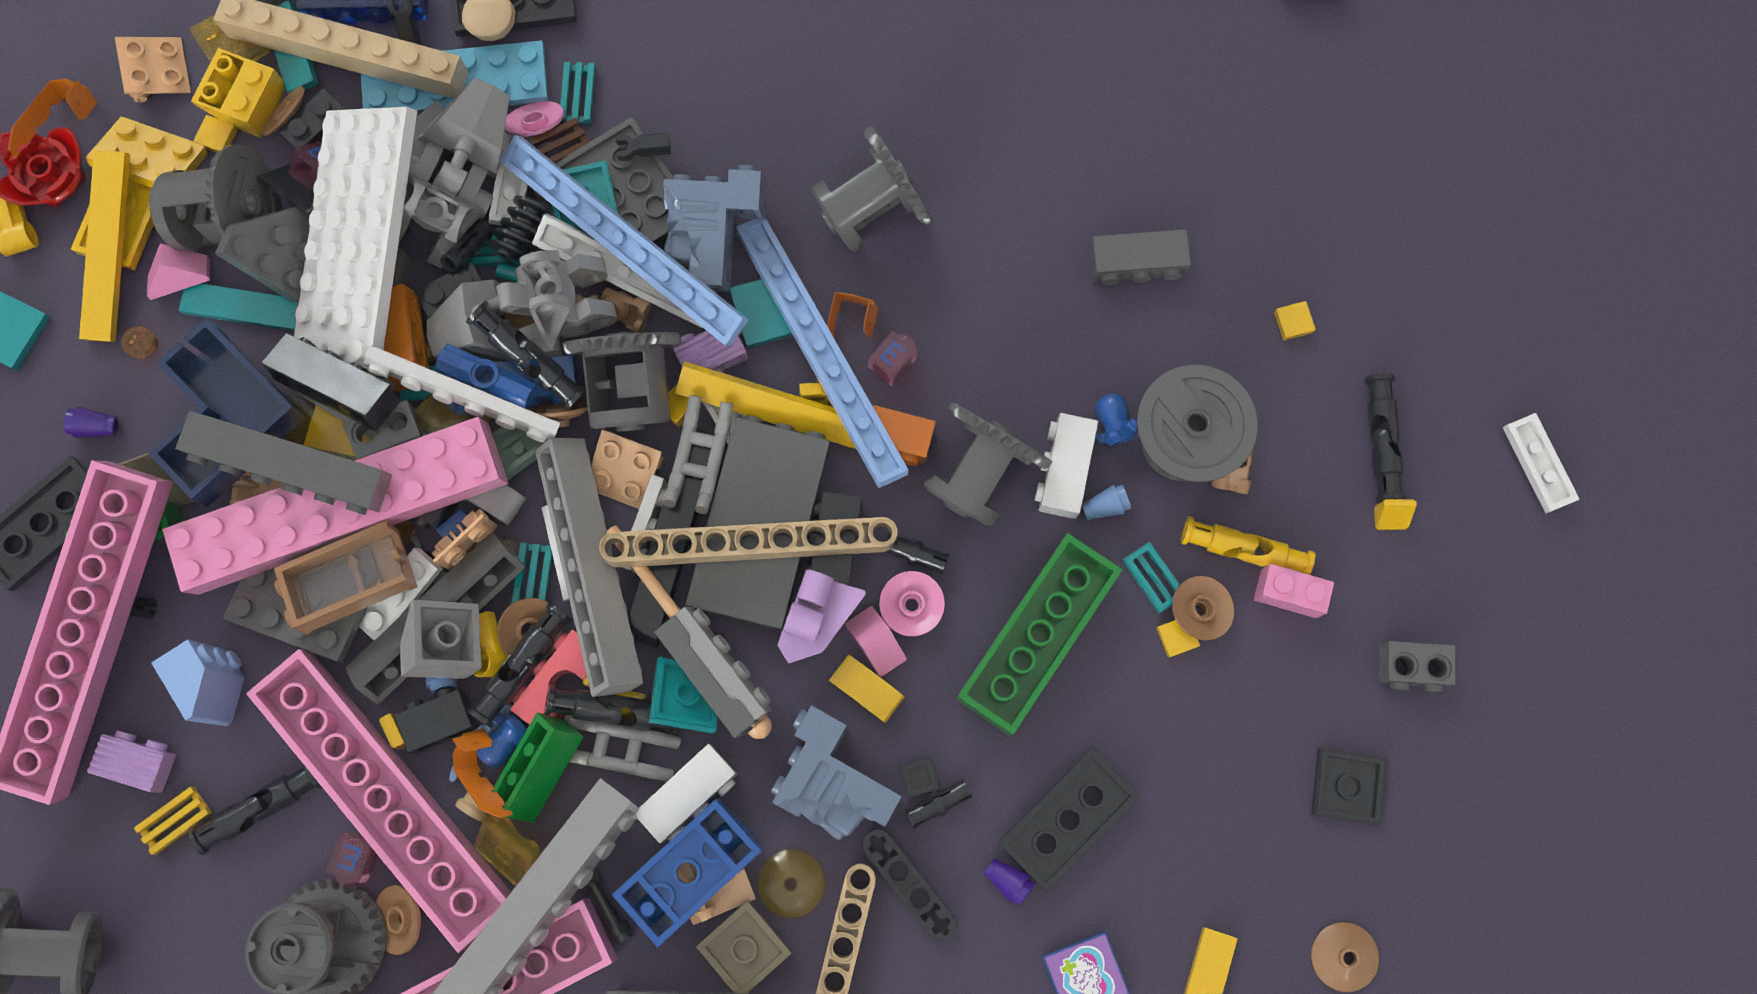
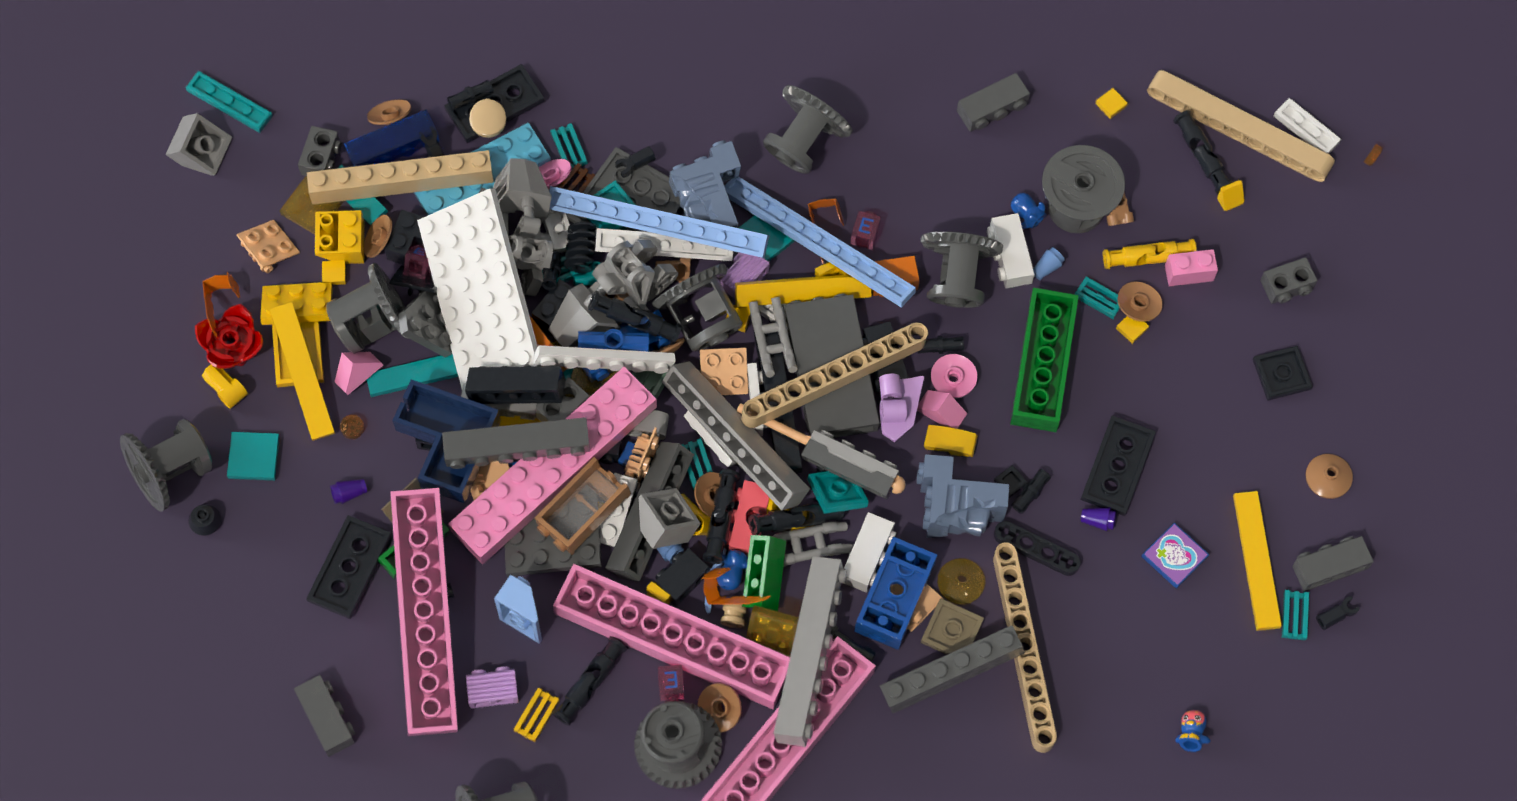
camera: 25 degrees left, 10 degrees down
(1453, 425) = (1241, 126): none -> tan beam
(1613, 538) = (1373, 155): none -> clear orange tile

